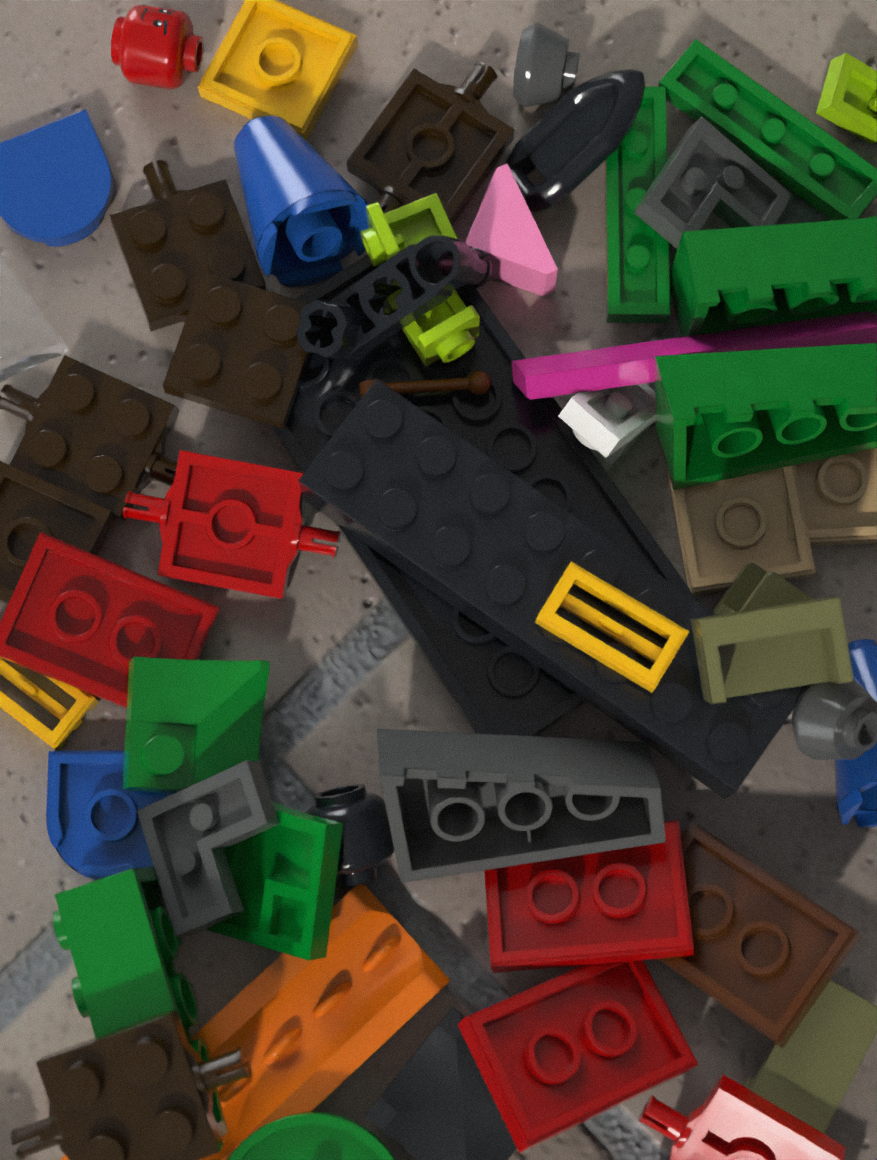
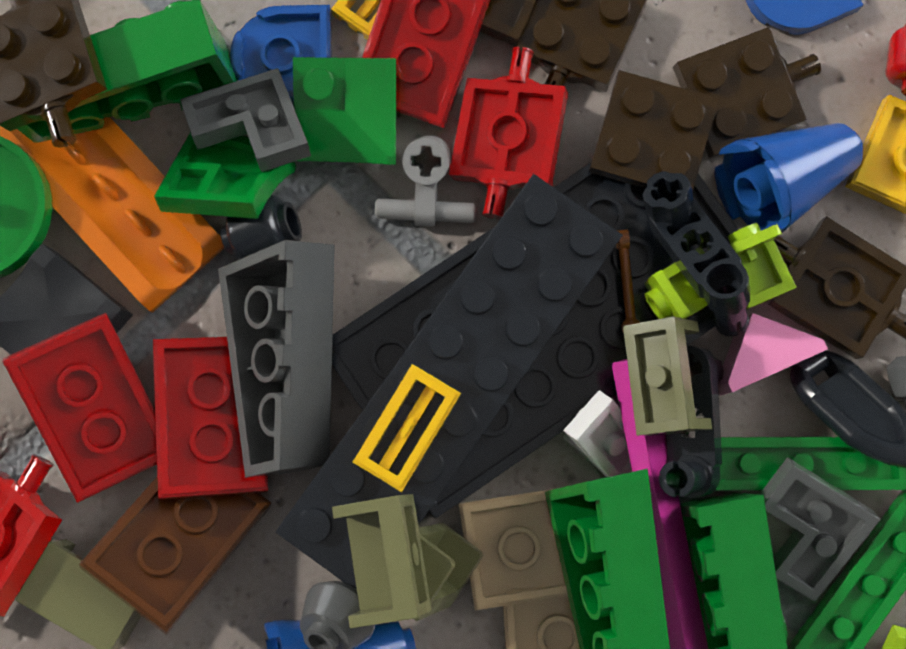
camera: 85 degrees right, 5 degrees up
(320, 629) = (425, 208): none -> light grey piece
(547, 339) = (662, 377): none -> olive panel
(628, 323) = (700, 455): none -> black beam

